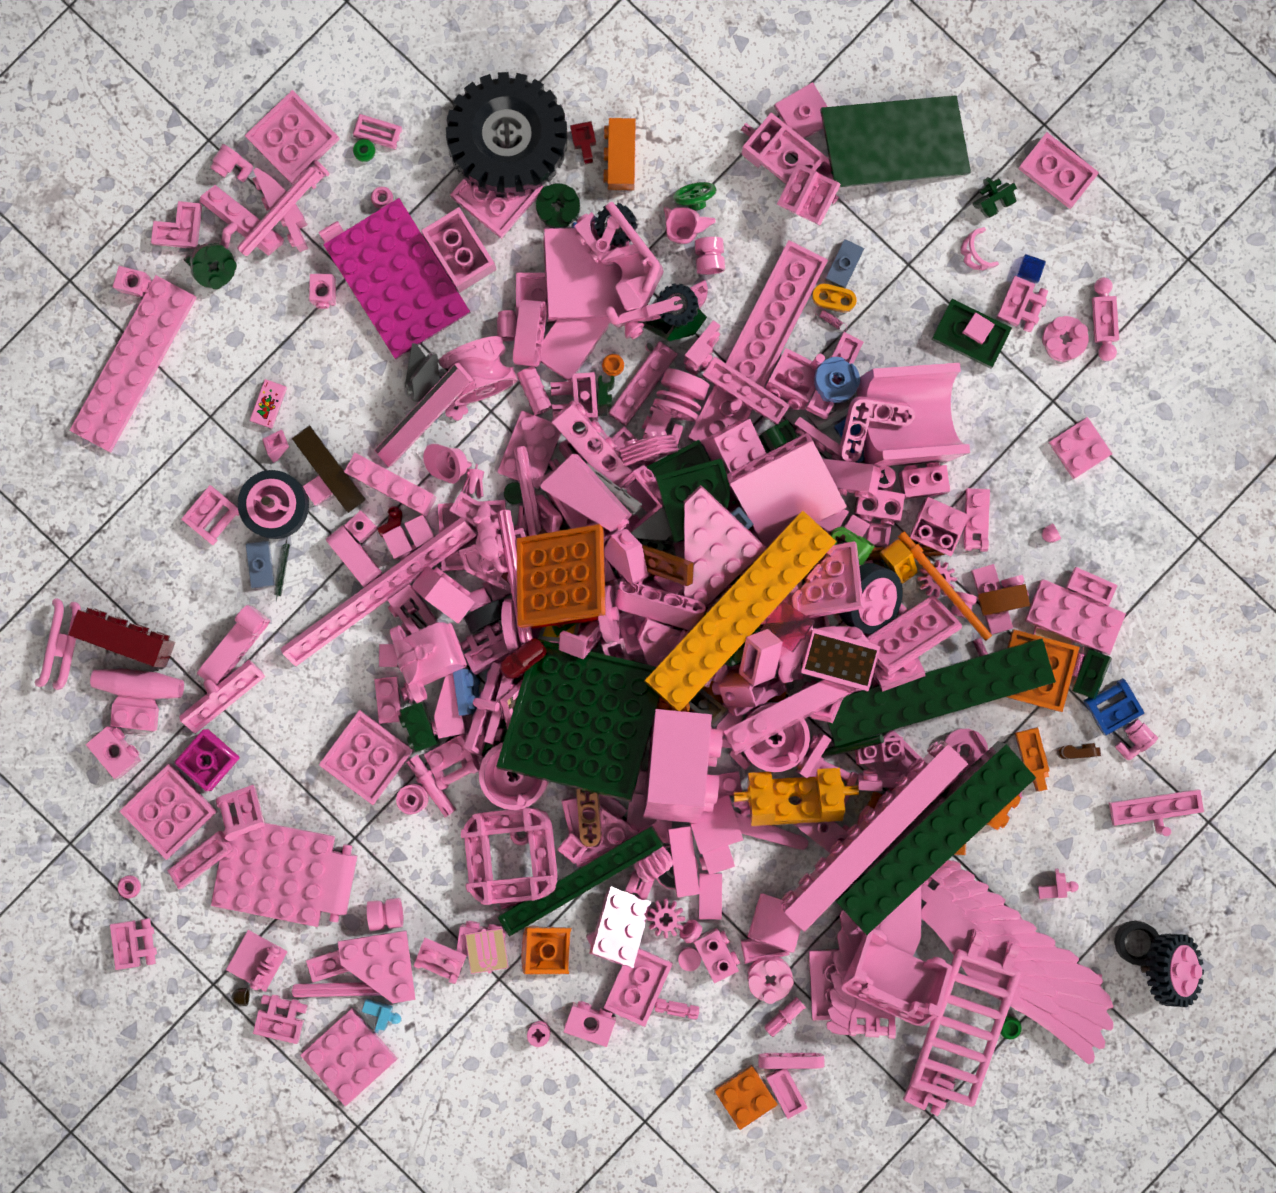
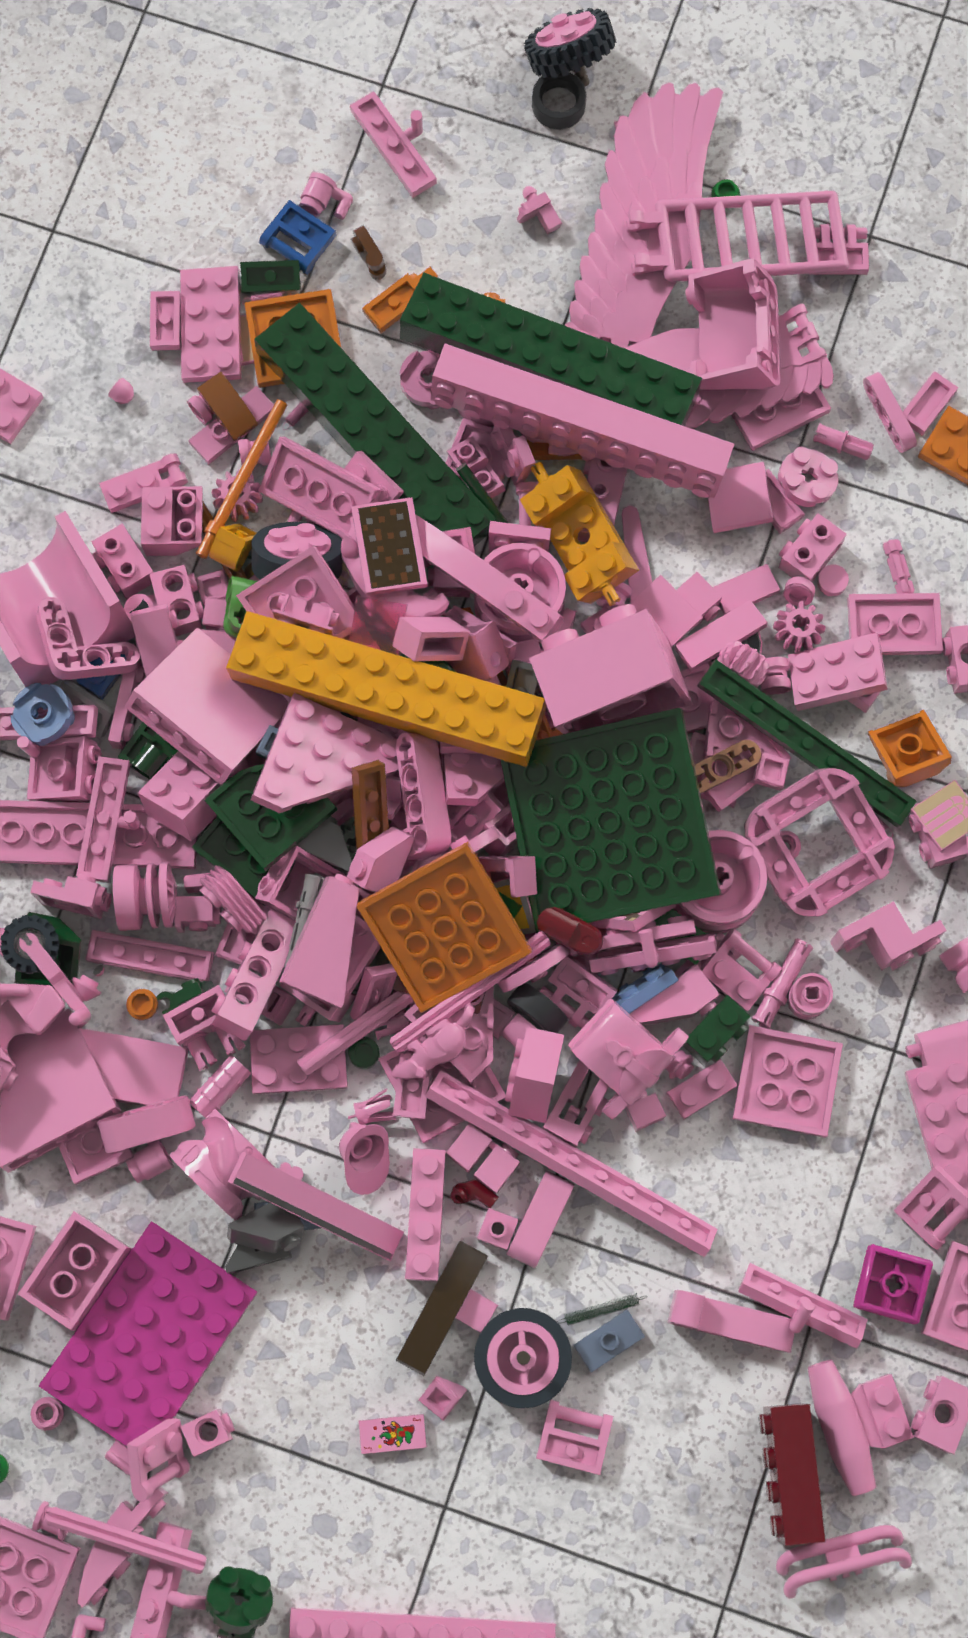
camera: 115 degrees left, 10 degrees down
(325, 253) = (152, 1450): none -> bright pink plate
(424, 869) = (888, 937): none -> bright pink bracket
(822, 573) = (294, 612): none -> bright pink hinge

